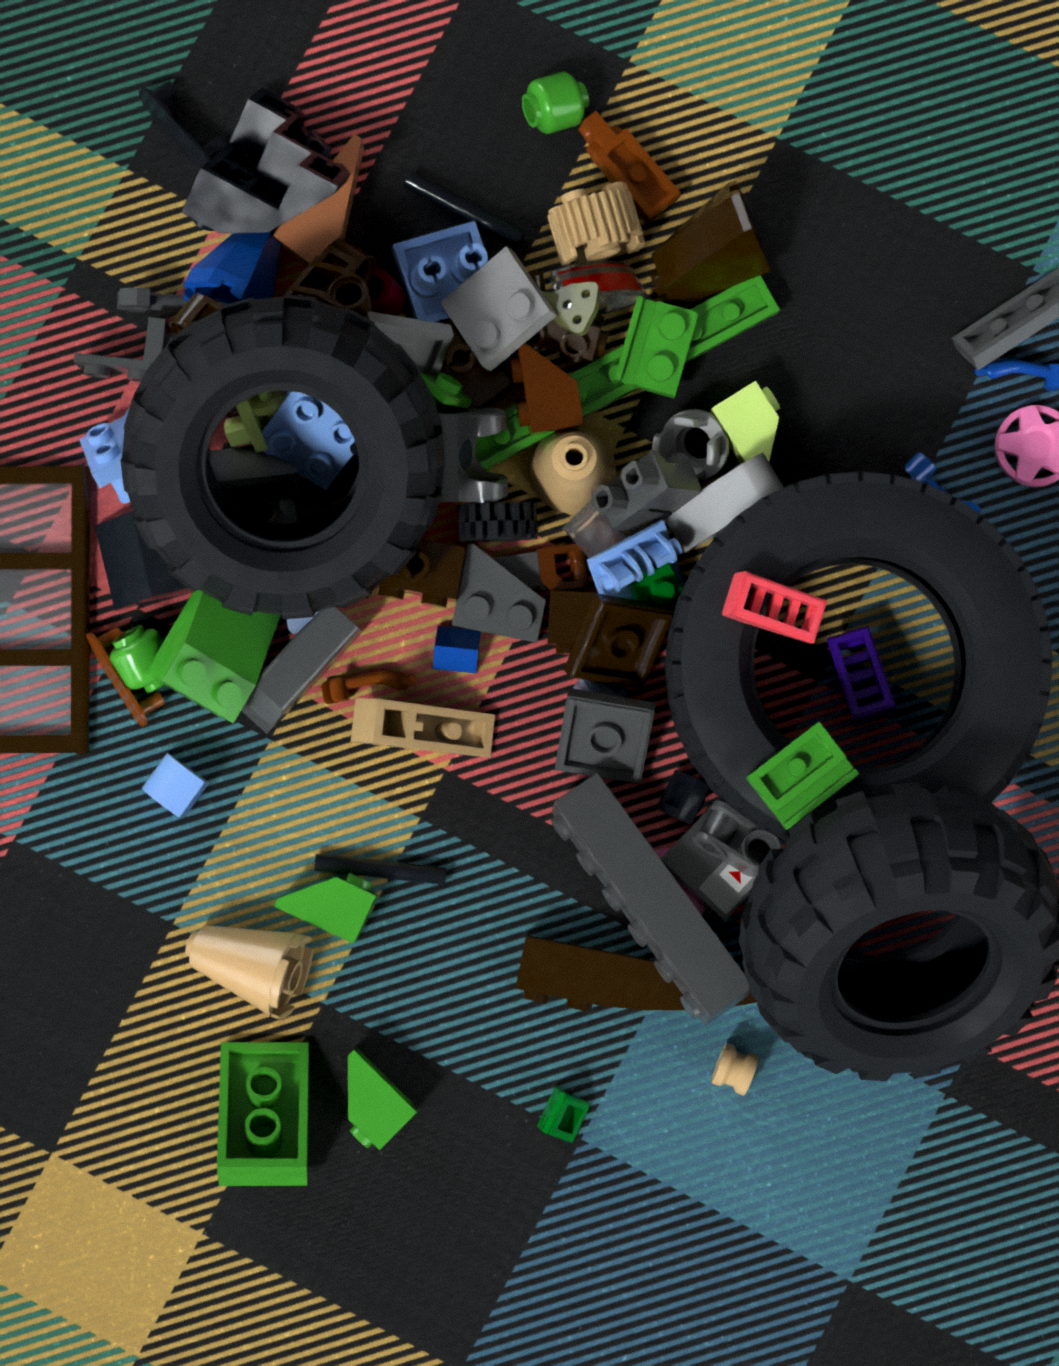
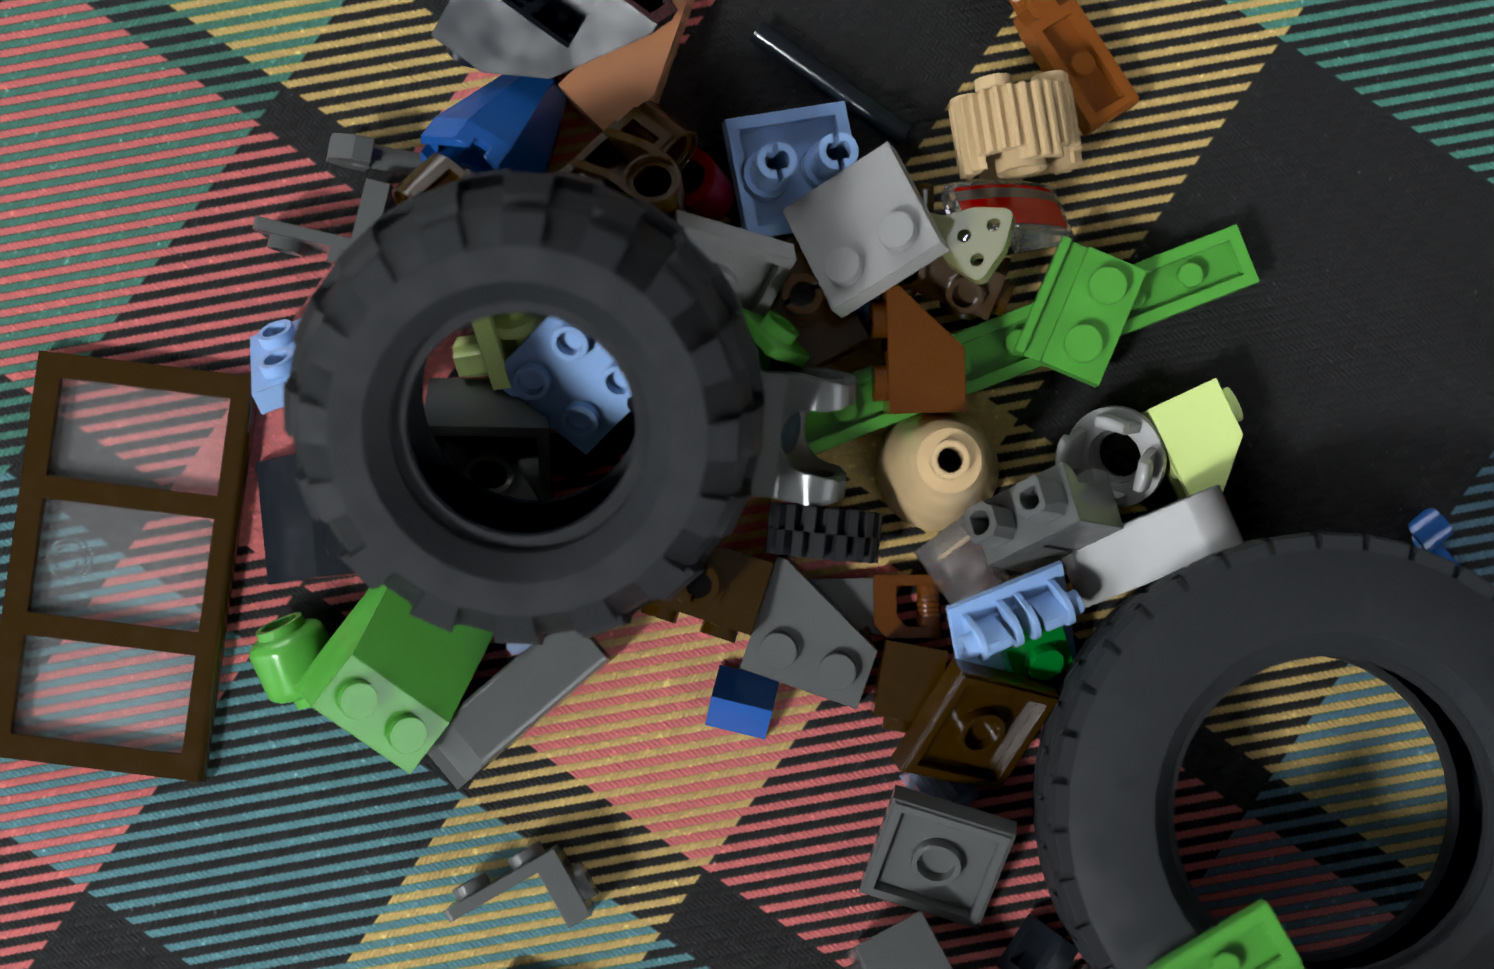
camera: 10 degrees right, 0 degrees up
(137, 709) = (287, 728): dark orange piece -> none
(175, 786) = (318, 846): light blue brick -> none
(337, 689) = (565, 736): dark orange piece -> none
(352, 789) = (566, 883): none -> dark grey bracket
(422, 727) = (678, 809): tan slope -> none
(710, 251) = (1175, 184): dark brown slope -> none
(738, 594) = (1180, 704): coral slope -> none
(874, 711) = (1297, 848): dark purple slope -> none

